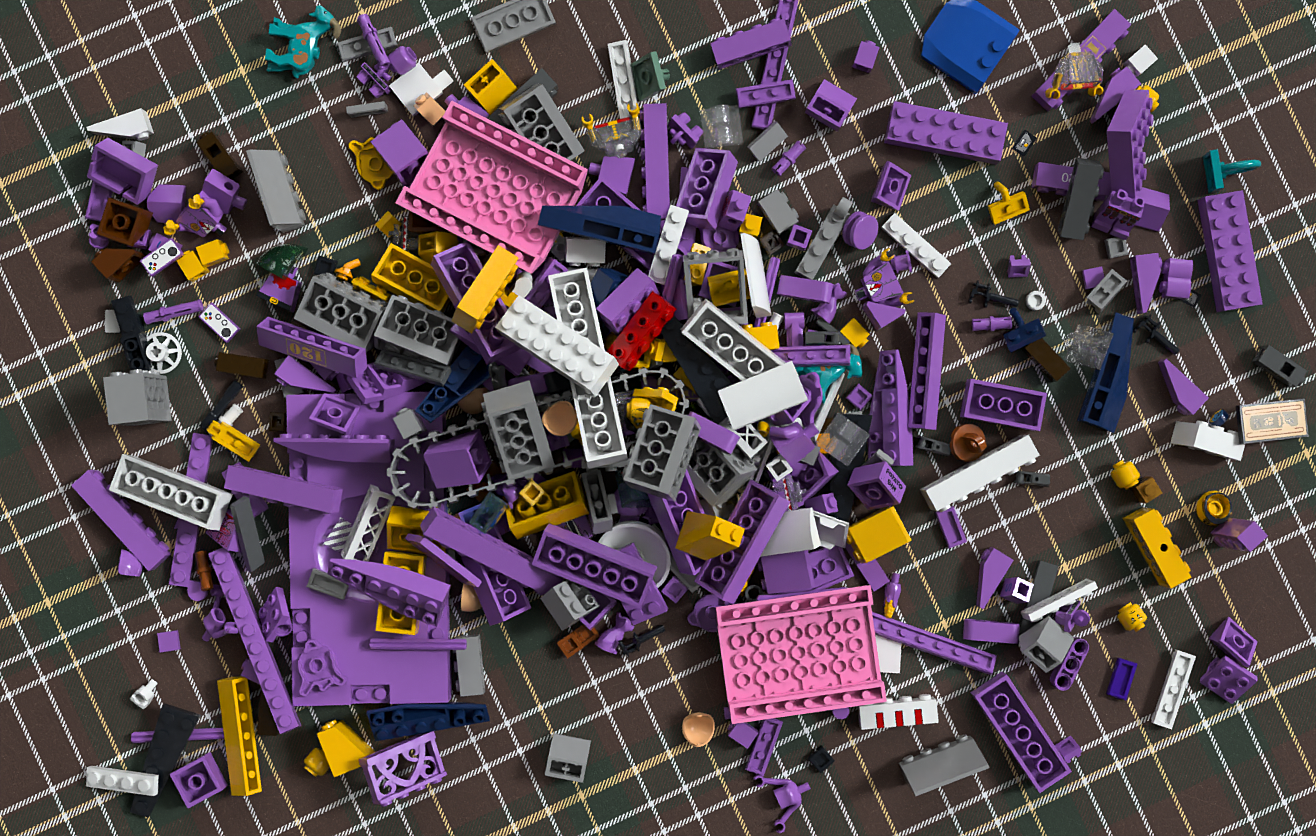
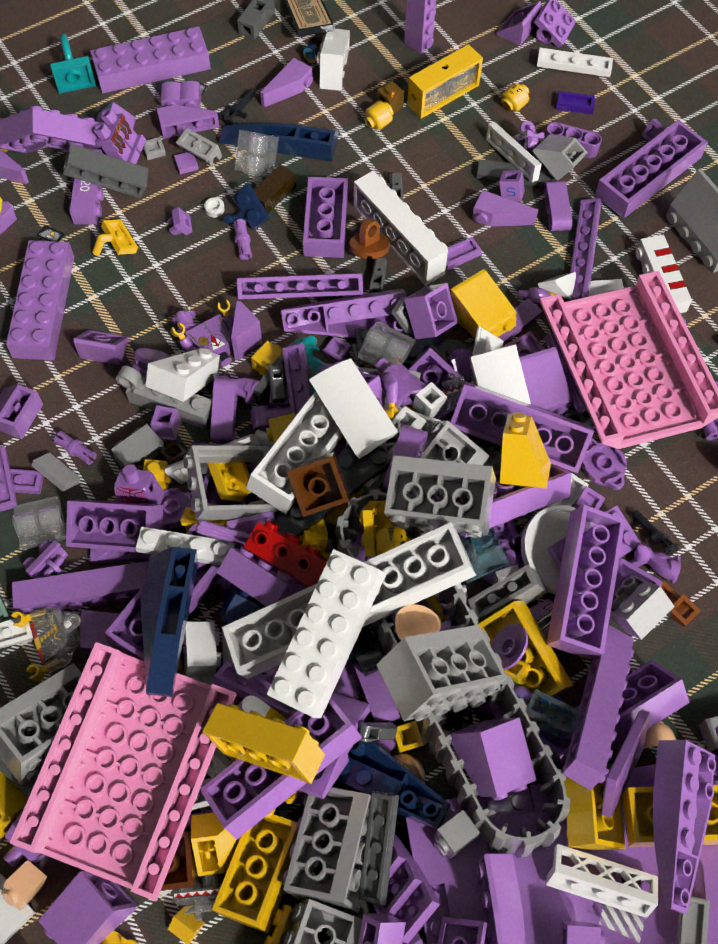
camera: 100 degrees left, 25 degrees down
(547, 491) = (510, 644): none -> medium lavender dish
(694, 358) = (318, 484): none -> reddish brown slope
(839, 257) = (183, 373): none -> white wedge
(898, 612) = (560, 284): none -> white slope
(916, 245) = (160, 321): white plate -> none
(991, 296) = (213, 246): black piece -> none
(1214, 508) = (397, 49): yellow piece -> none

